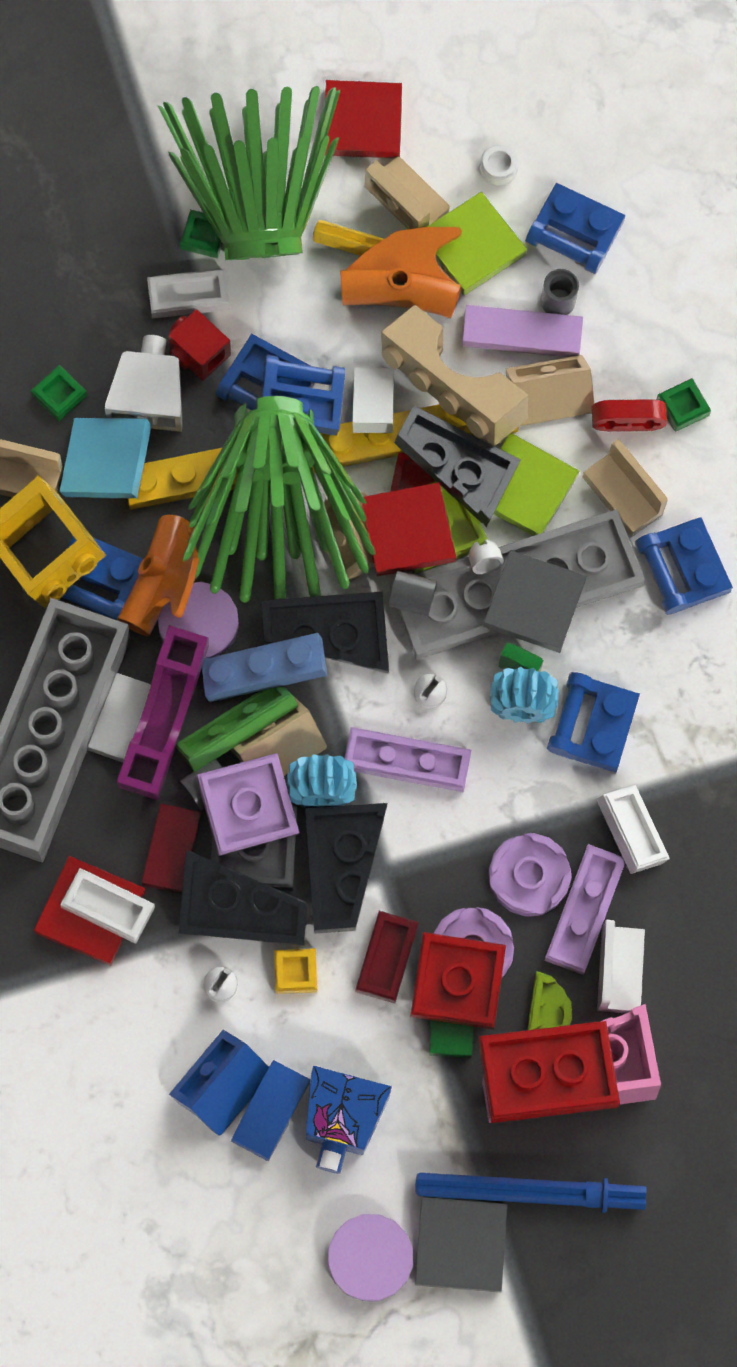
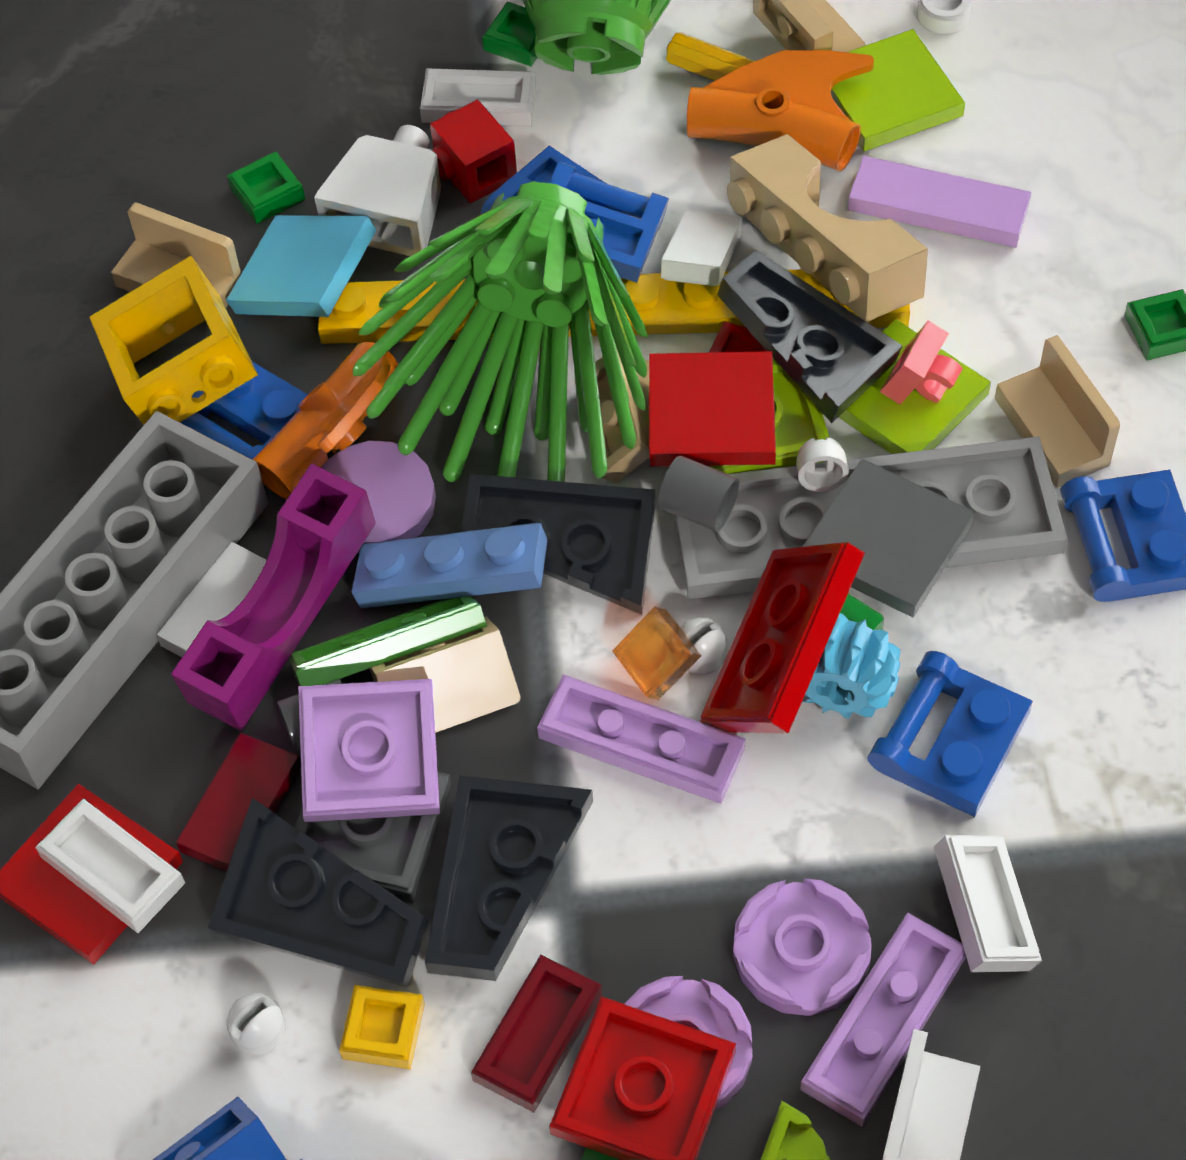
camera: 20 degrees right, 15 degrees down
(321, 781) = (493, 736): medium azure gear -> none
(406, 703) = (656, 653): none -> clear orange tile
(485, 687) = (782, 638): none -> red tile
(534, 473) = (922, 367): none -> coral tile
(555, 388) = (975, 279): tan panel -> none
(563, 280) = (1002, 153): dark grey beam -> none
(581, 219) = (1041, 89): blue plate -> none
(629, 415) = (1080, 320): red beam -> none

